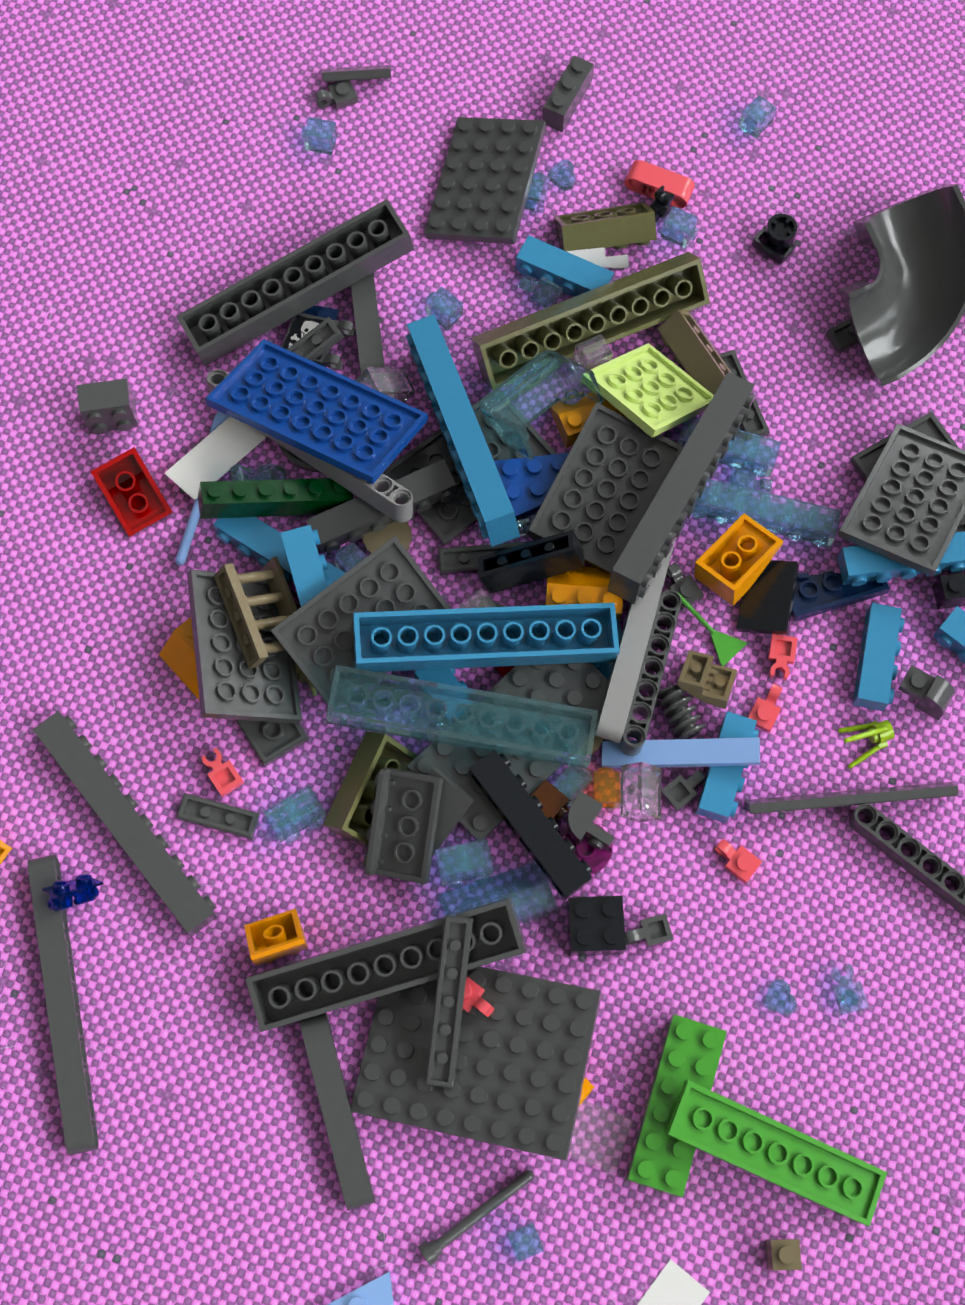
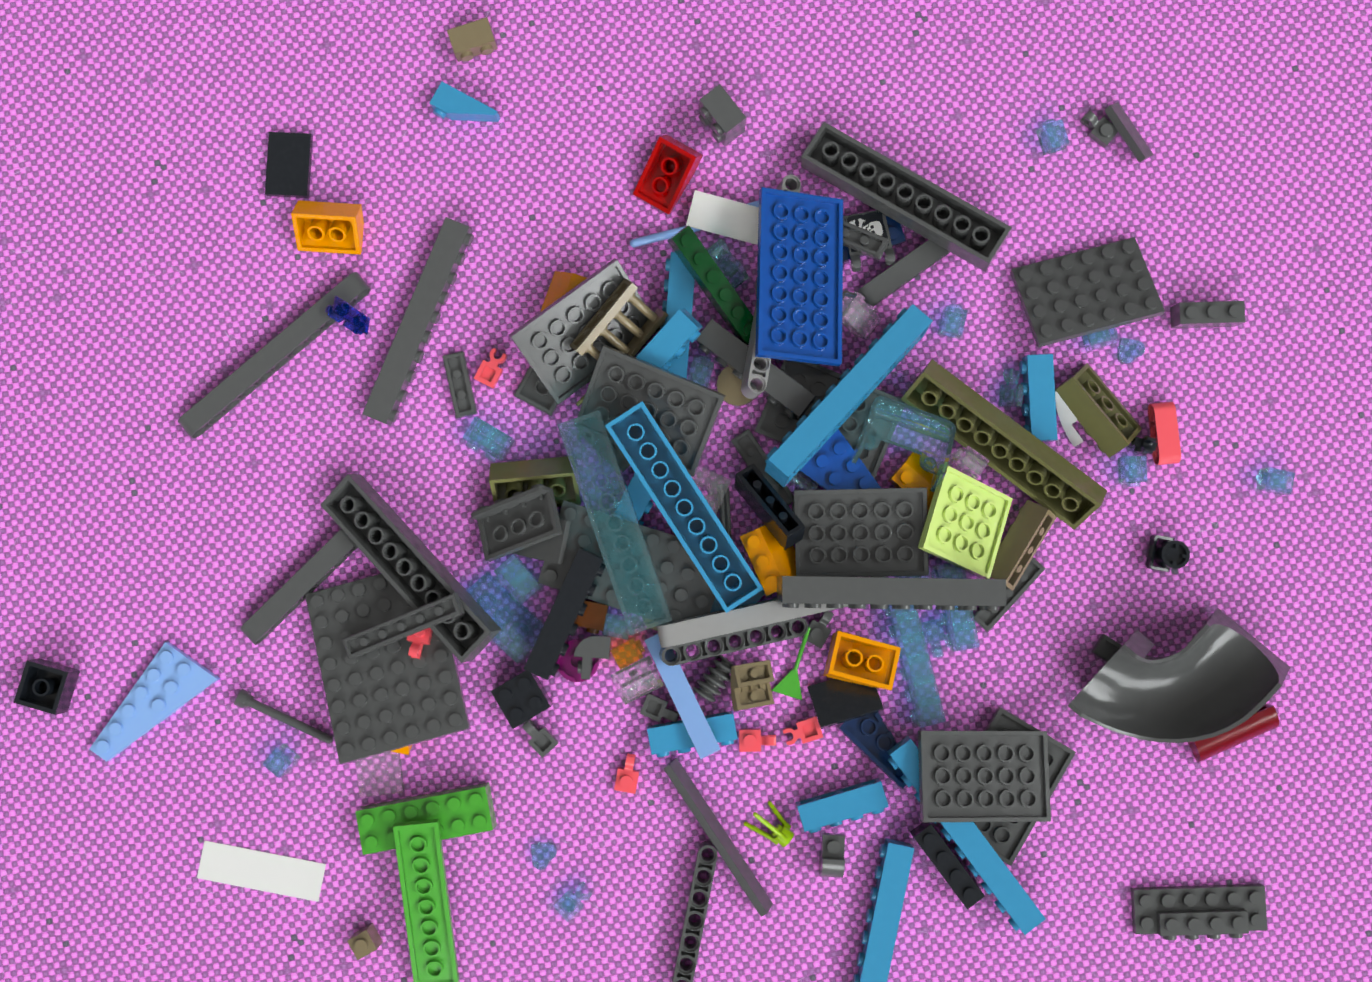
camera: 70 degrees right, 15 degrees up
(275, 937) = (391, 477): light orange slope -> none

